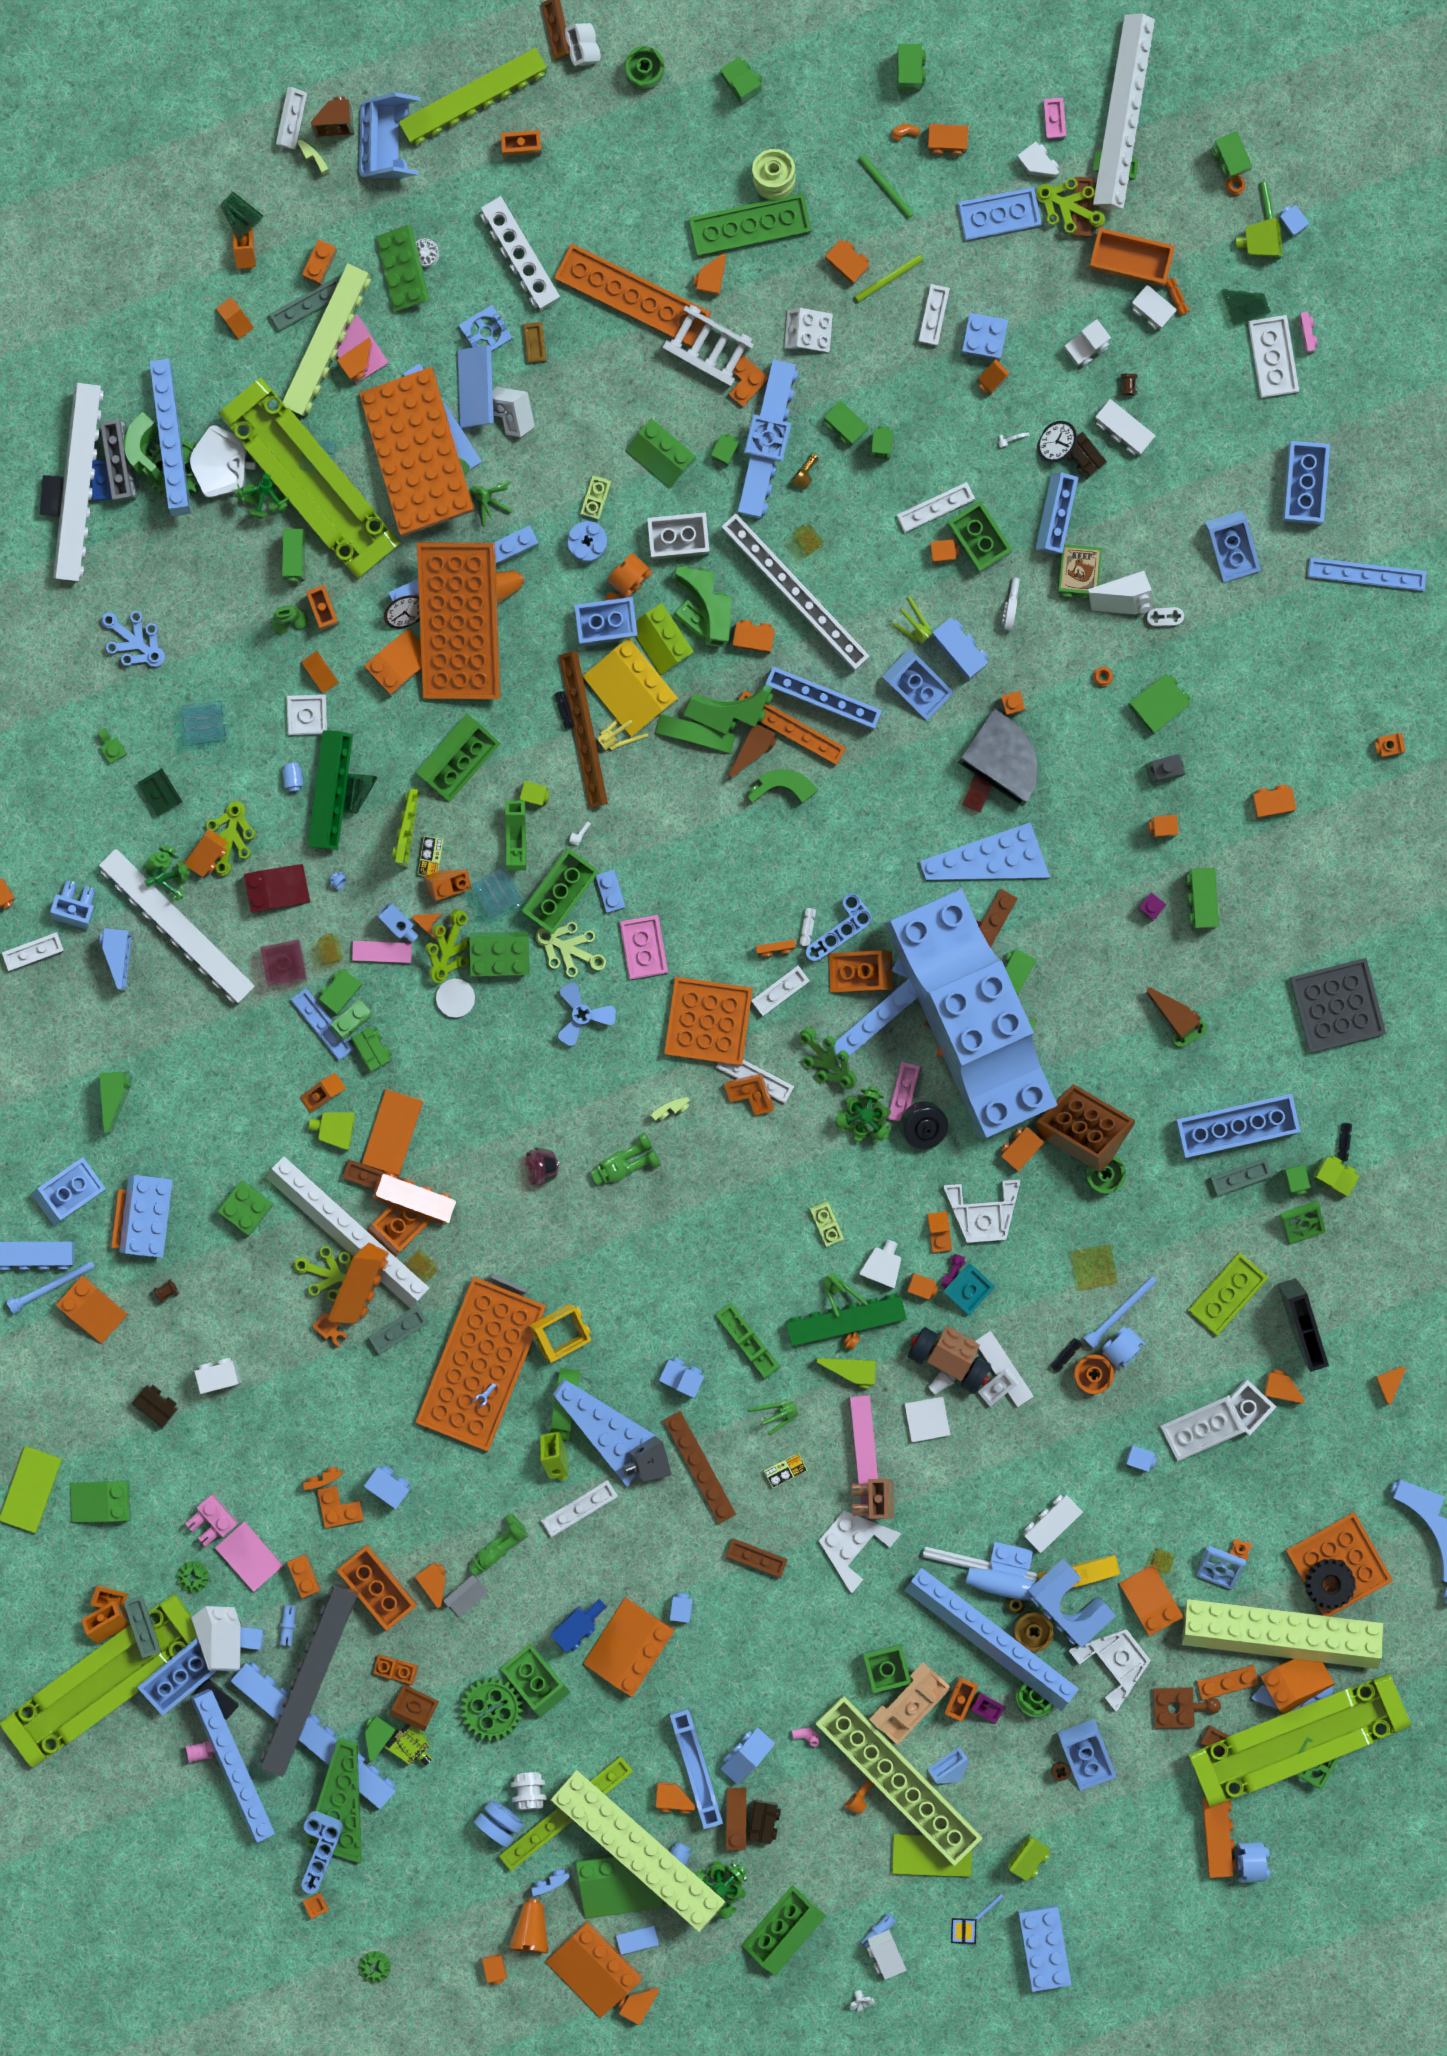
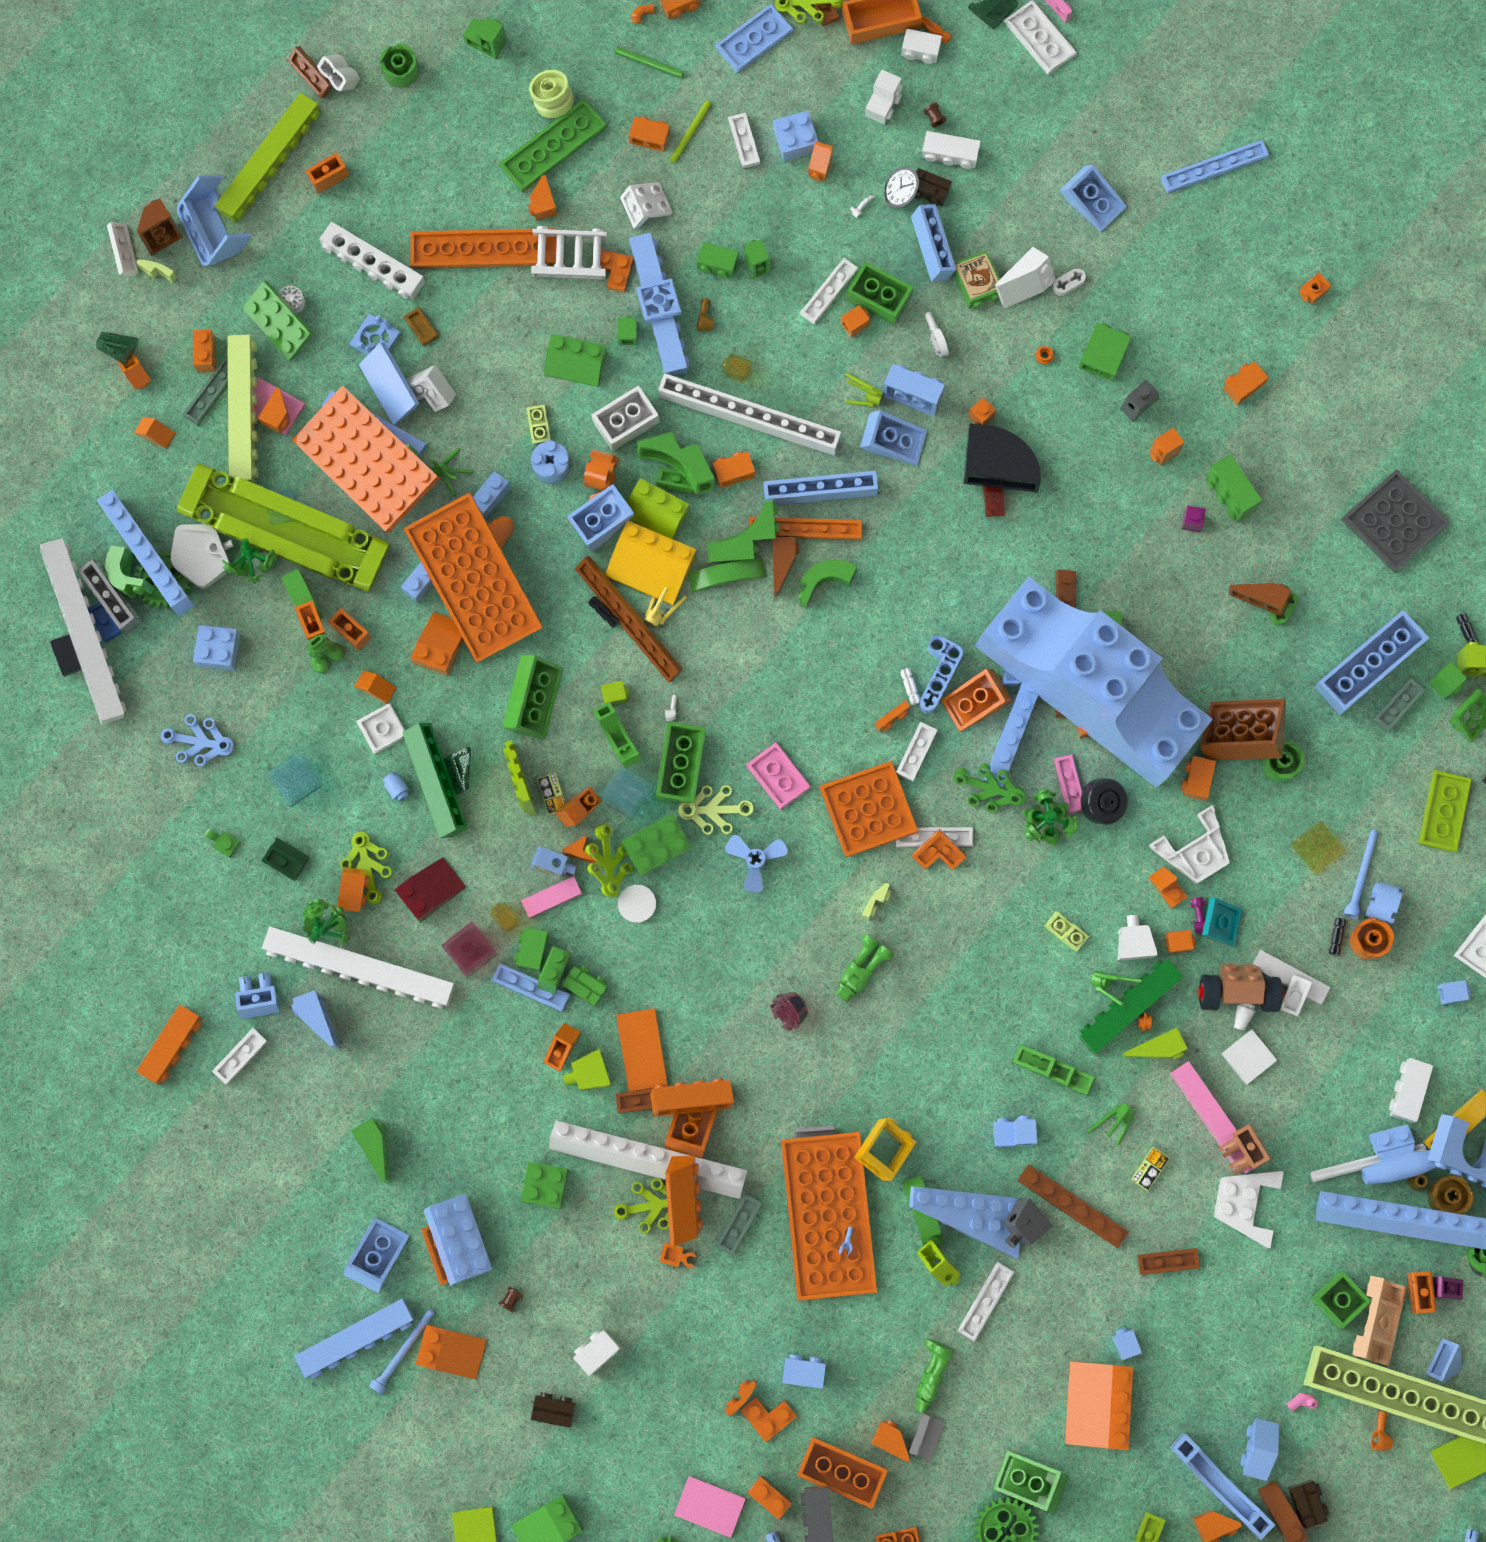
camera: 25 degrees left, 10 degrees down
(192, 560) = (216, 647): none -> light blue brick
(219, 1517) = (659, 1482): bright pink brick -> none
(289, 586) = (310, 620): none -> orange slope
(337, 880) = (481, 855): light blue plate -> none
(402, 612) = (422, 597): sticker -> none
(423, 1264) = (730, 1153): clear yellow brick -> none
(577, 1625) = (1042, 1410): blue brick -> none
(610, 891) = (724, 743): light blue plate -> none
(1000, 856) = (1038, 546): light blue wing -> none
(1306, 482) = (1124, 117): light blue brick -> none

